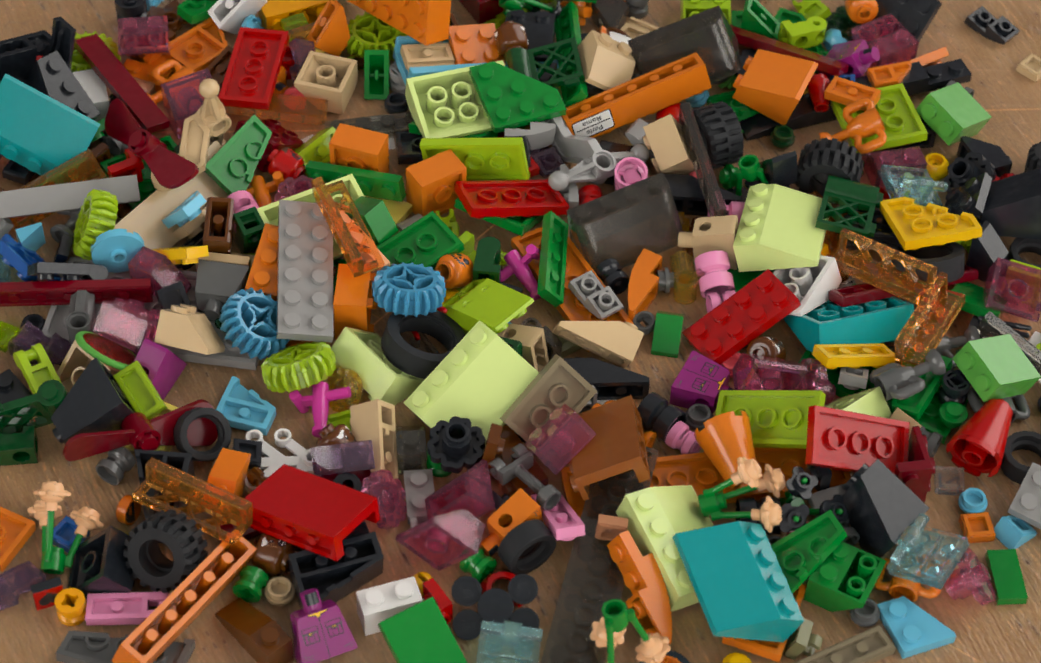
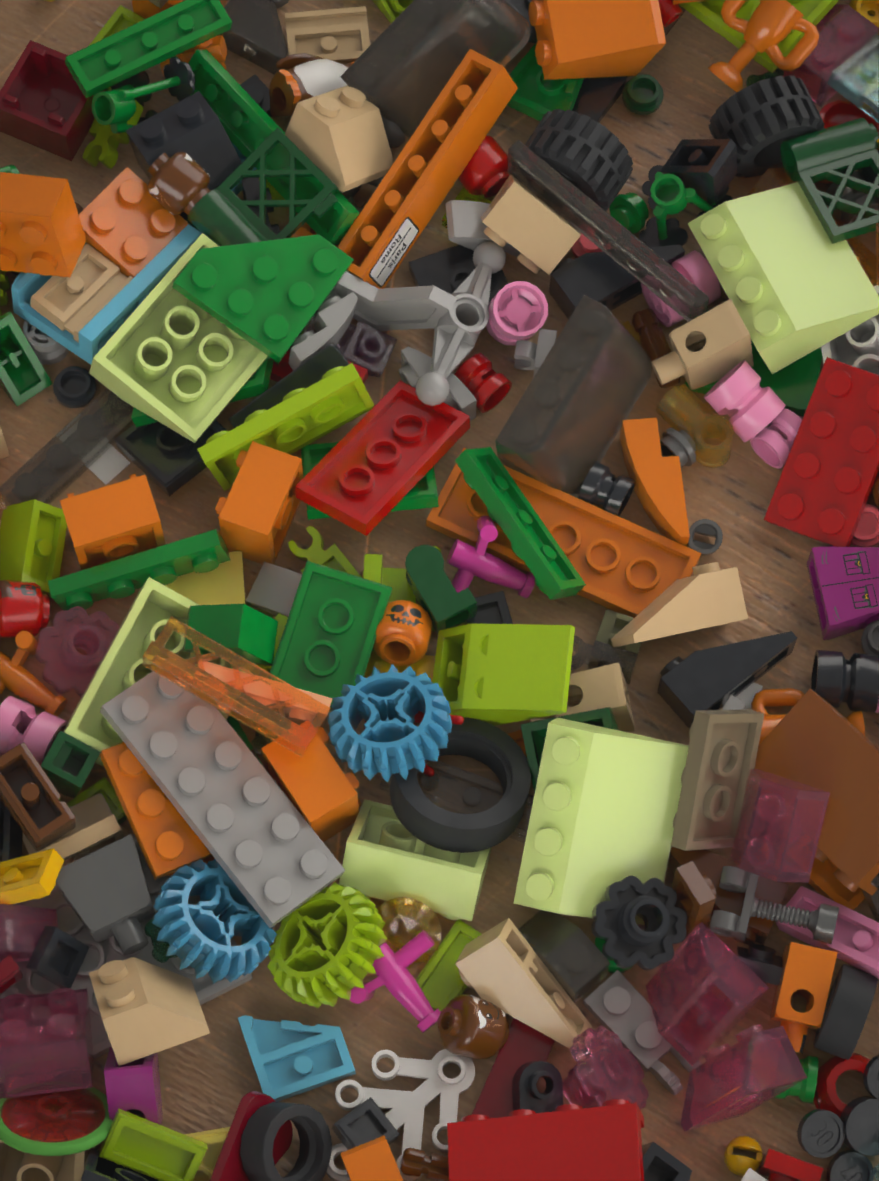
camera: 35 degrees left, 20 degrees up
(342, 458) = (514, 1049): clear purple slope -> none
(597, 299) = (618, 545): light grey slope -> none
(667, 334) = (744, 528): green slope -> none

